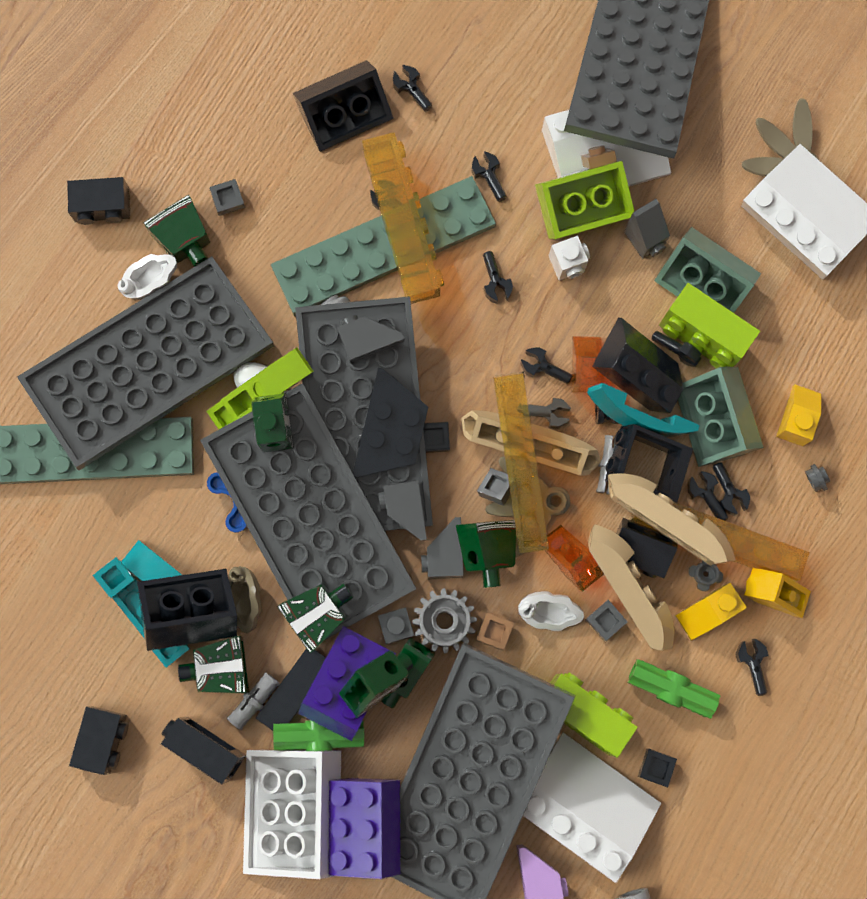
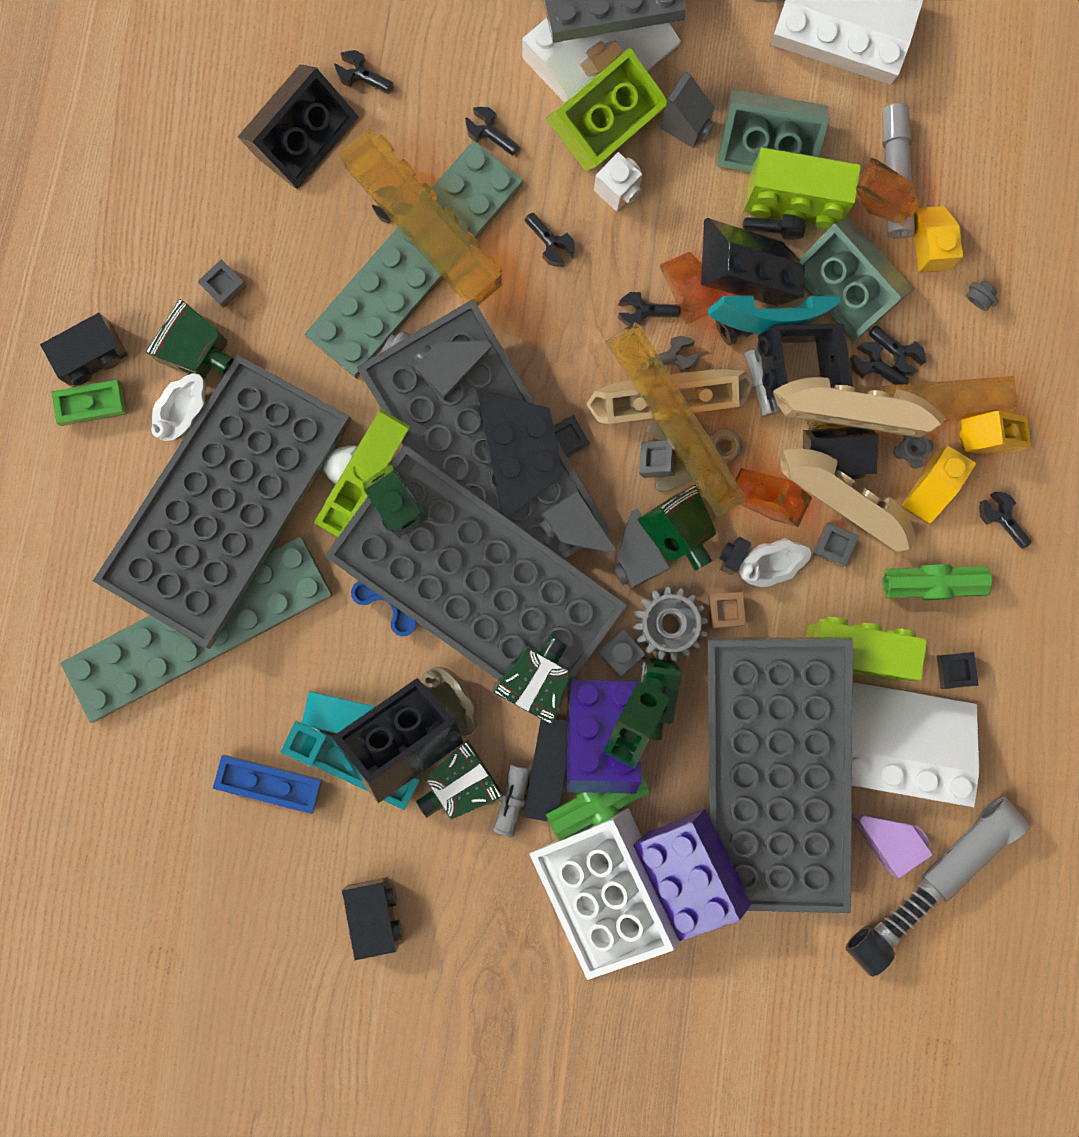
camera: 25 degrees left, 5 degrees up
(71, 596) = (267, 784): none -> blue plate
(82, 241) = (88, 402): none -> bright green plate
(202, 749) = (485, 876): black window -> none
(520, 590) = (733, 555): none -> black plate
(773, 362) = (887, 193): none -> clear orange slope
(795, 349) = (897, 156): none -> light grey piece

